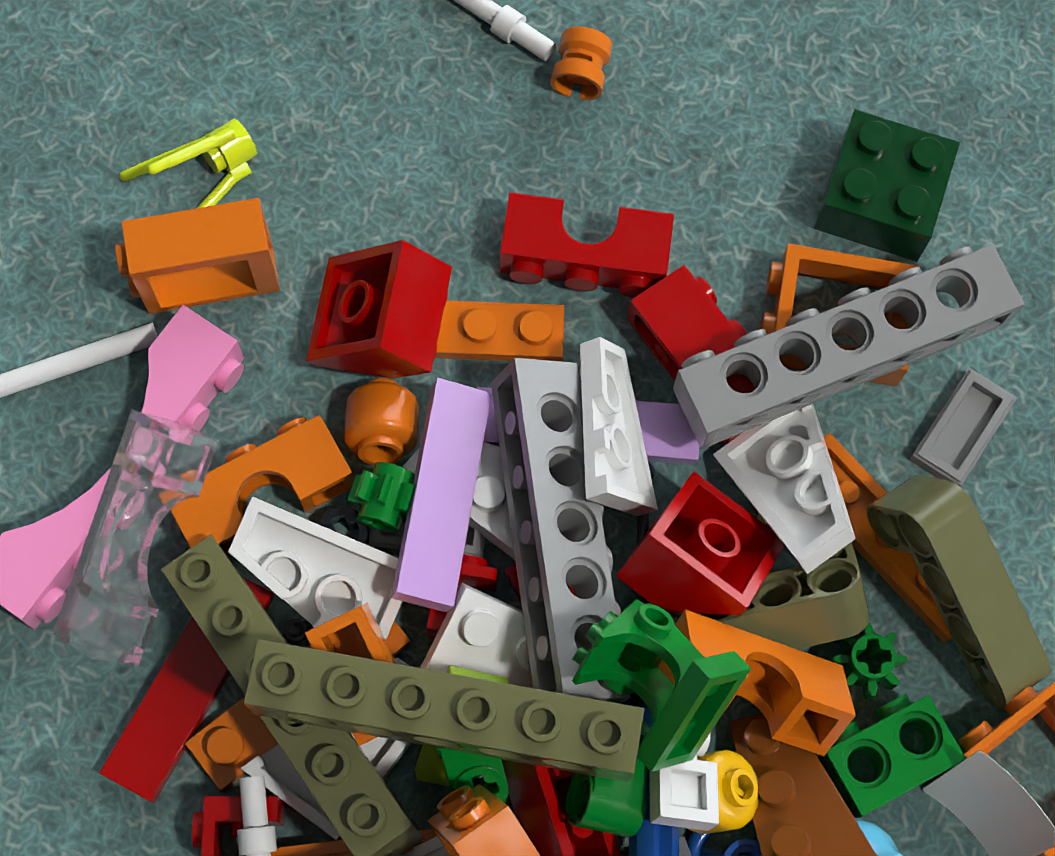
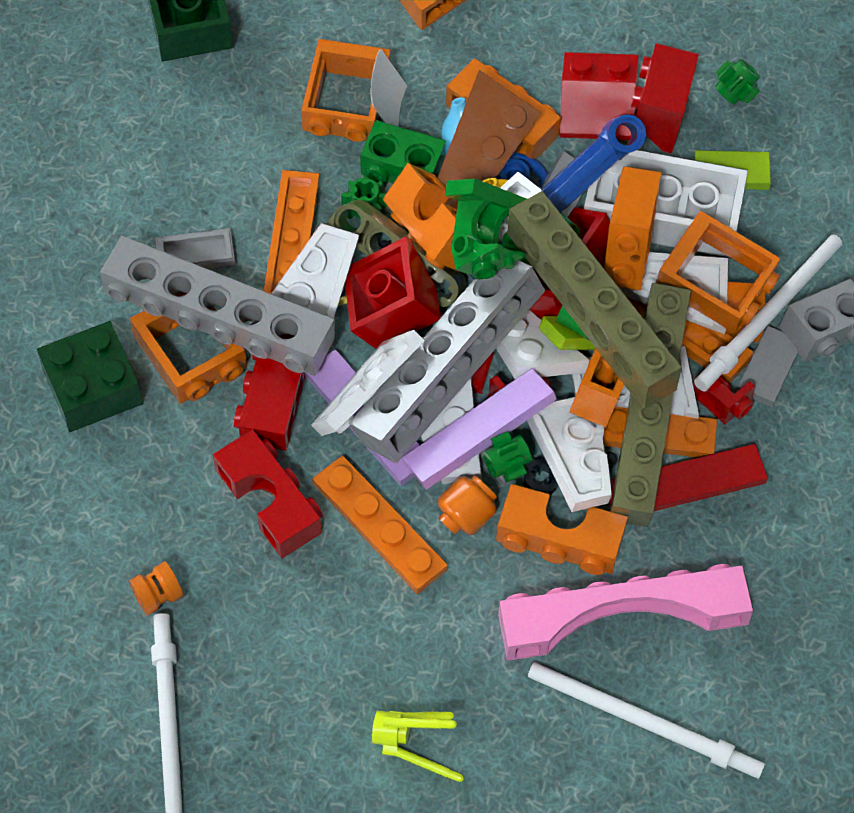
camera: 130 degrees left, 10 degrees down
(109, 596) = (691, 535): clear arch -> none
(198, 256) = (473, 661): orange window -> none
(380, 311) = (415, 544): red slope -> none
(967, 582) = (286, 182): olive beam -> none

